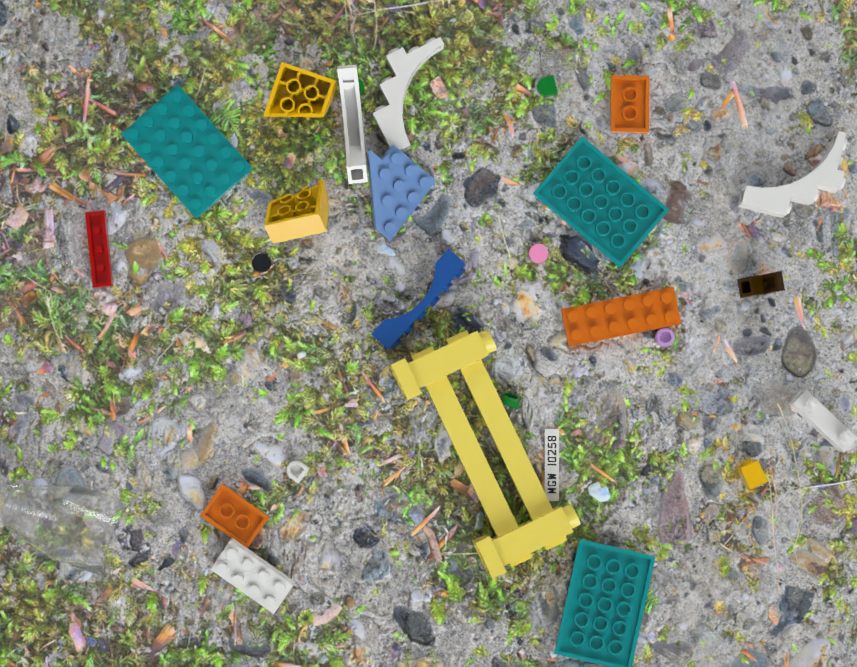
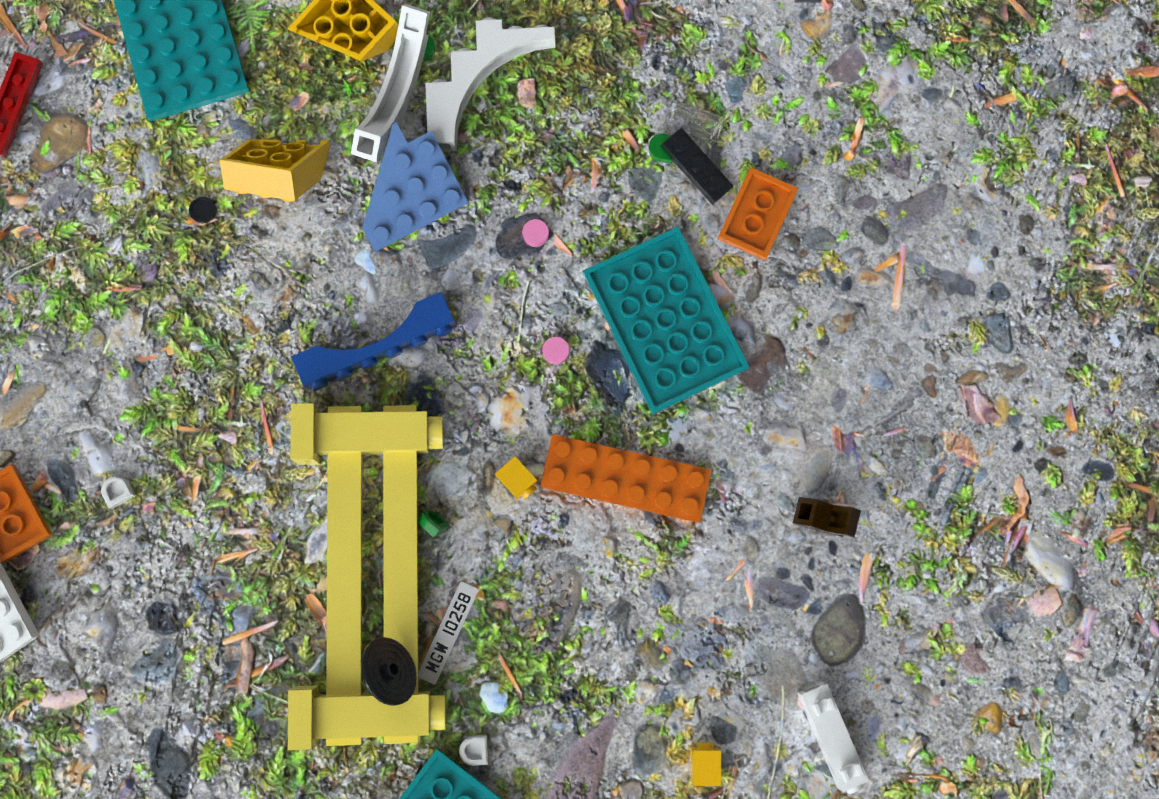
camera: 20 degrees right, 5 degrees down
(489, 181) = (535, 233): none -> bright pink tile
(531, 504) = (388, 671): none -> black shield
(552, 348) = (517, 479): none -> yellow brick
(575, 89) = (696, 166): none -> black plate
(602, 529) = (475, 750): none -> white tile
(664, 337) = (671, 530): lavender tile -> none
(824, 176) = (935, 420): white arch -> none

